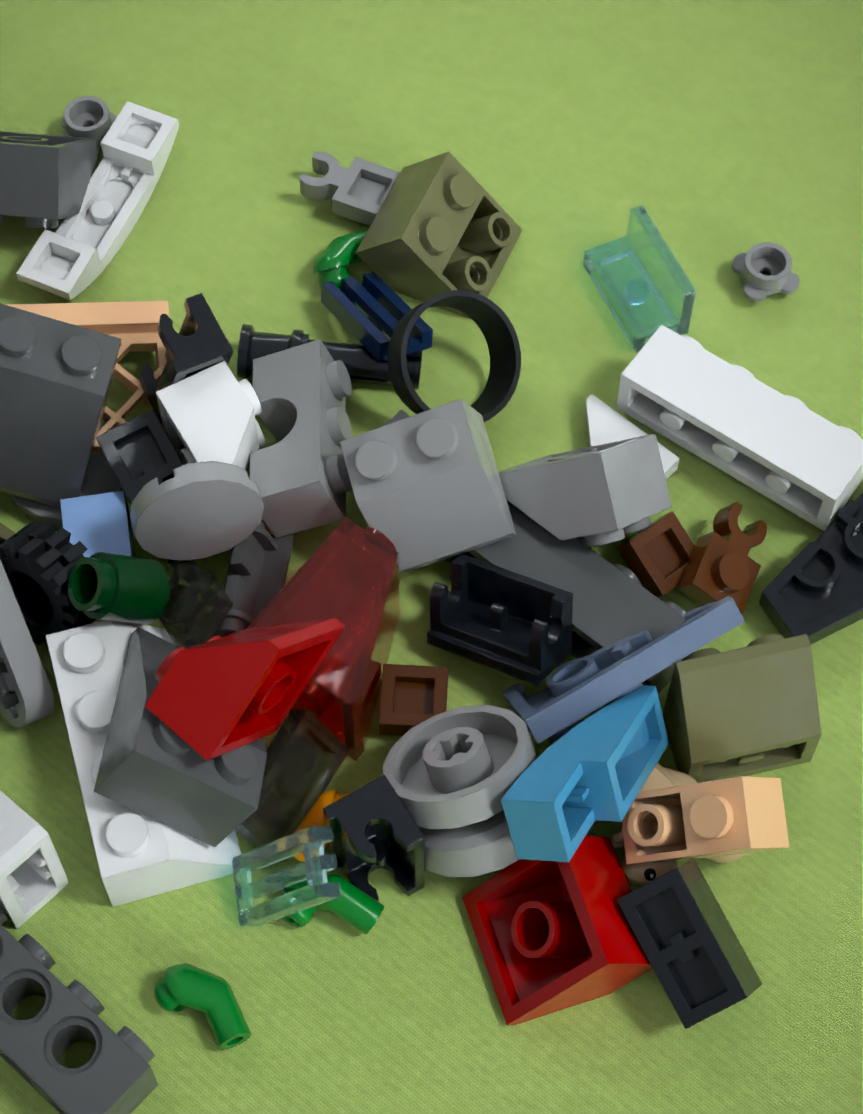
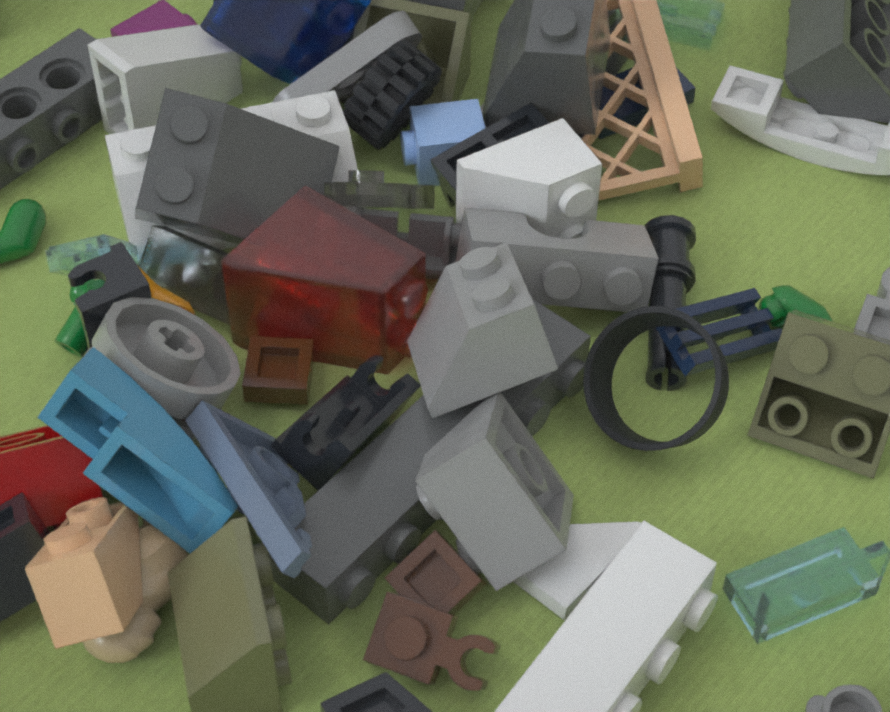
camera: 90 degrees right, 10 degrees down
(119, 588) = (369, 122): dark green brick -> none
(189, 352) = (629, 156): black hinge -> none
(197, 511) = (437, 154): light grey tile -> none
(239, 683) = (231, 161): red slope -> none

